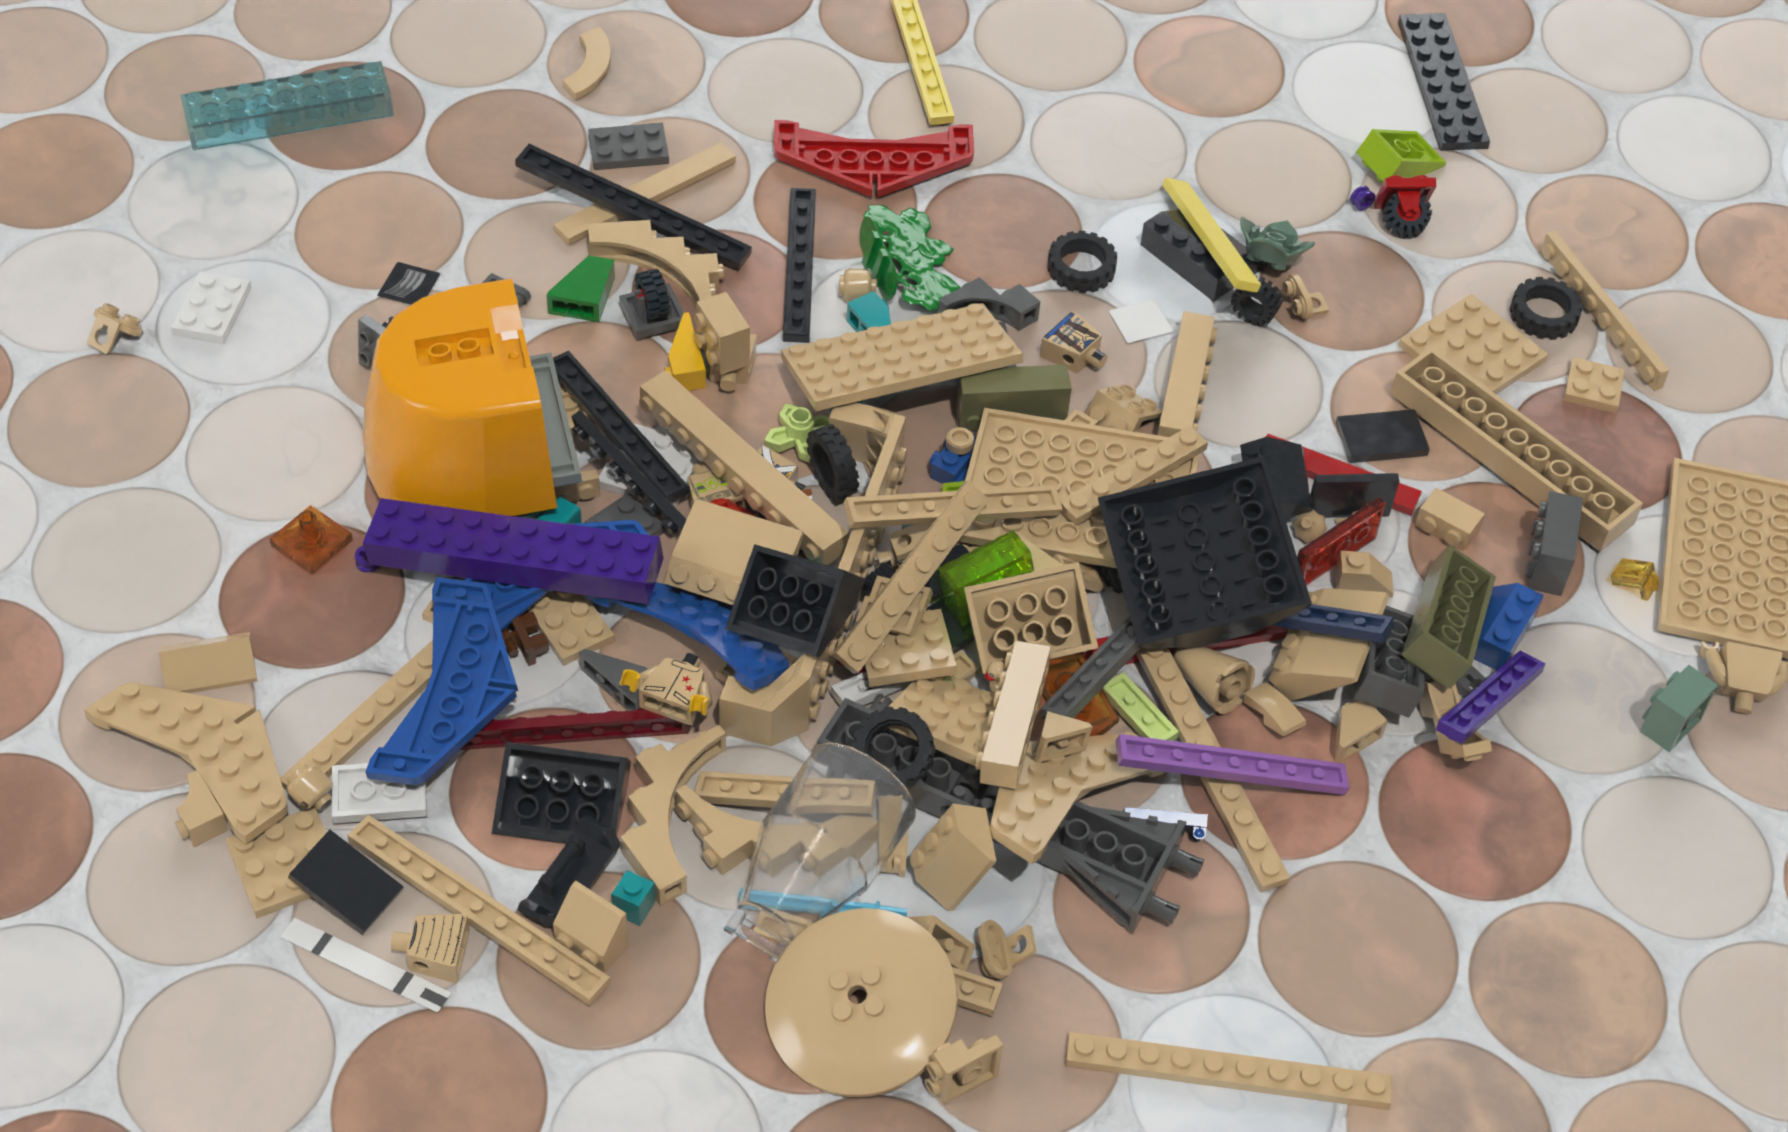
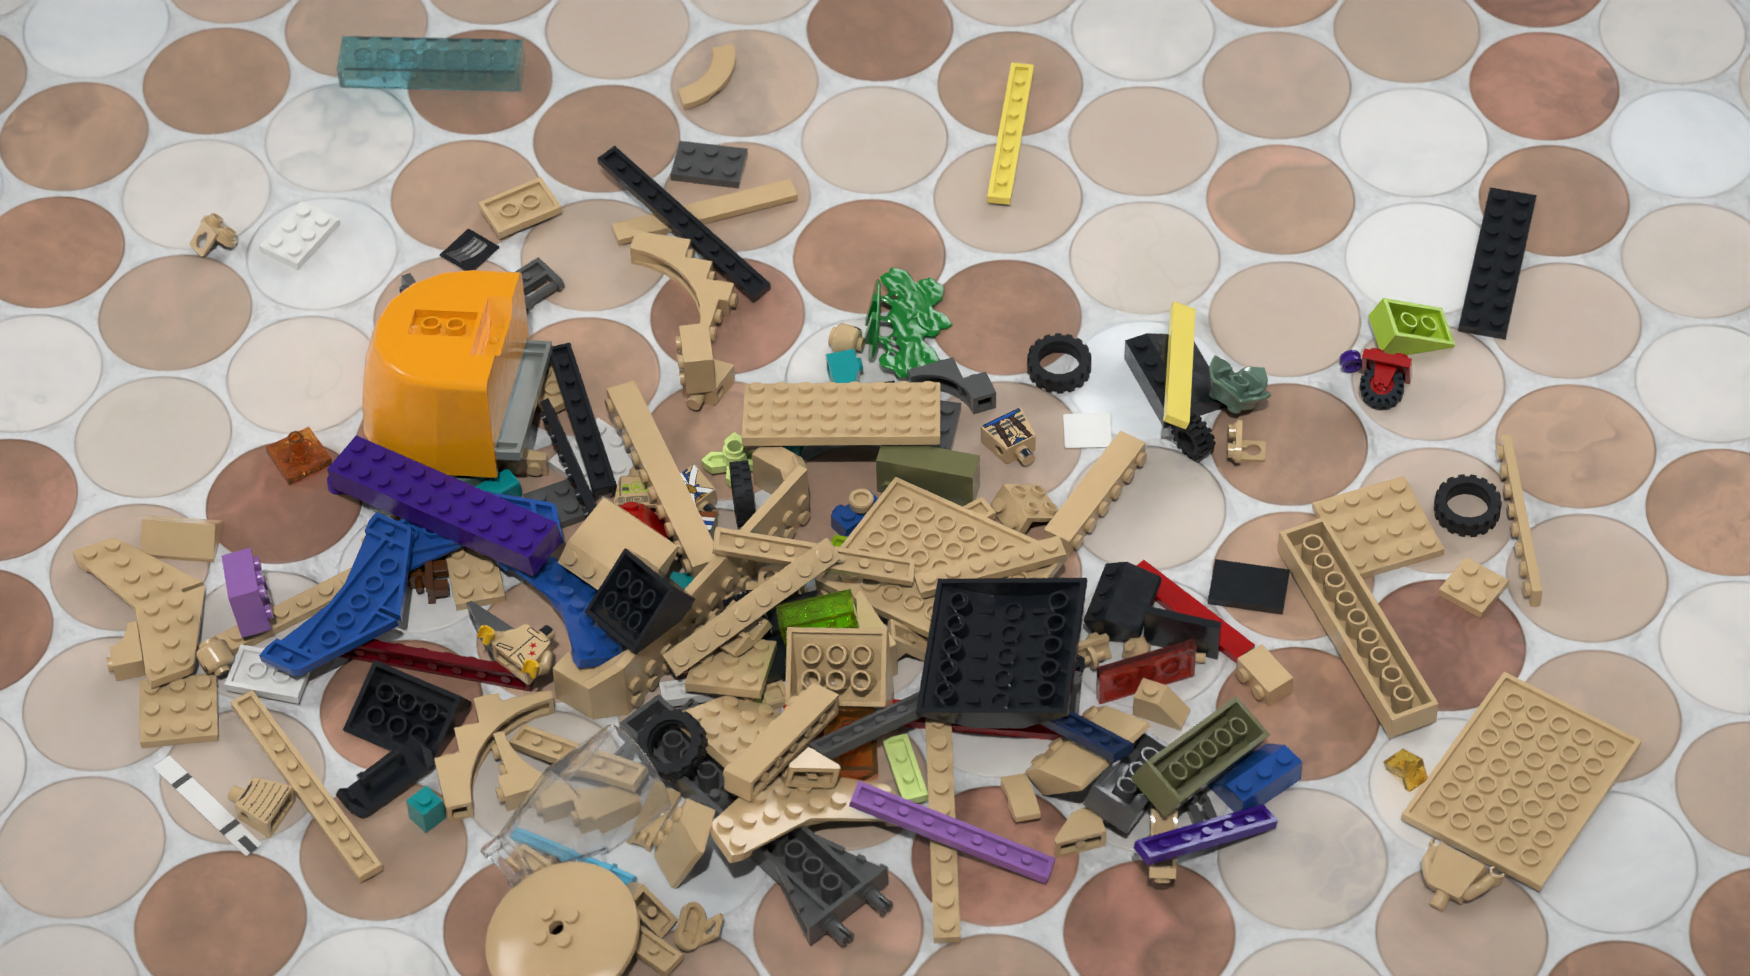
camera: 25 degrees right, 0 degrees up
(322, 703) = (247, 592): none -> medium lavender brick
(345, 882) = (214, 737): black tile -> none
(447, 228) = (520, 207): none -> tan plate
(583, 290) = (610, 290): green slope -> none
(591, 927) = (381, 823): tan slope -> none
(652, 305) = (659, 318): plate -> none
(685, 357) = (664, 377): yellow slope -> none
(799, 265) = (808, 308): black tile -> none
(861, 161) = (927, 229): red wing -> none
(1196, 822) = (904, 872): hinge -> none
(1215, 676) = (982, 758): tan cone -> none
(1554, 543) = (1341, 719): dark grey brick -> none
(1678, 707) = (1369, 888): sand green brick -> none

